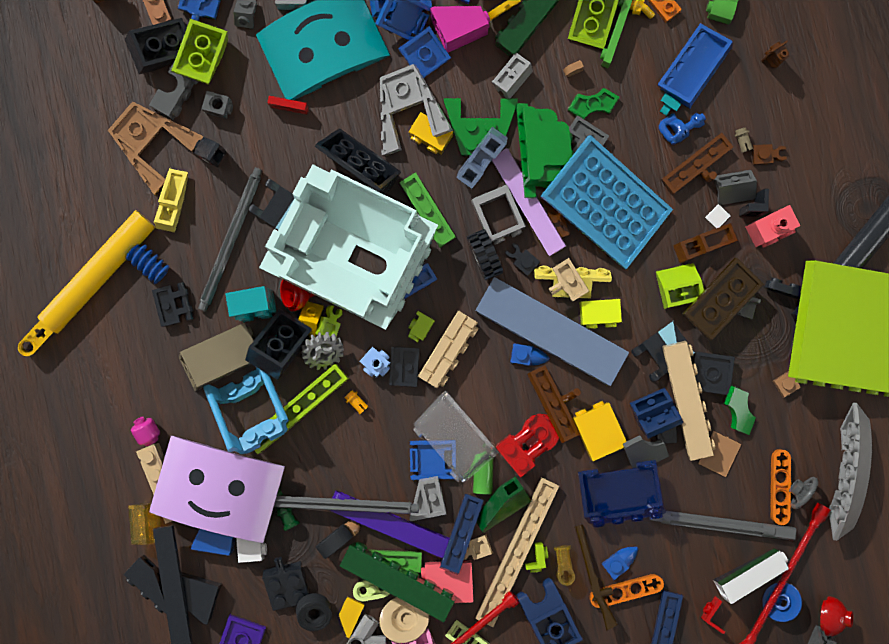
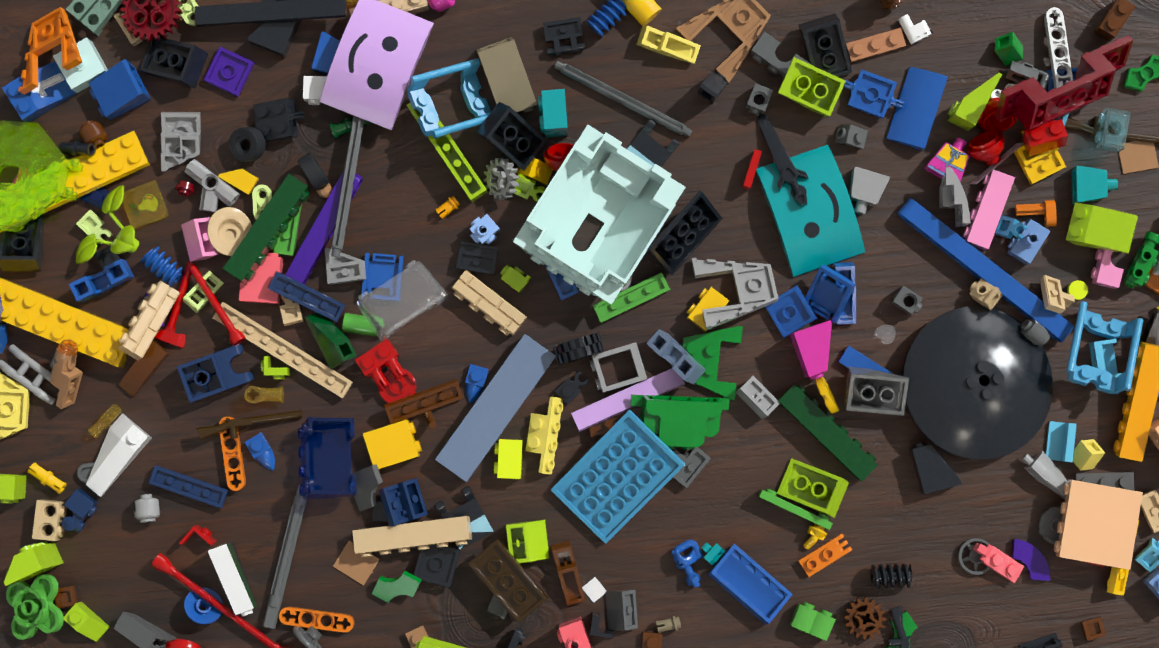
camera: 95 degrees right, 0 degrees up
(287, 67) = (787, 170): none -> black sword
(568, 280) = (543, 429): tan plate -> none
(573, 68) = (758, 458): medium nougat tile -> none
(600, 102) = (723, 486): green tile -> none
(697, 164) = (648, 574): reddish brown plate -> none

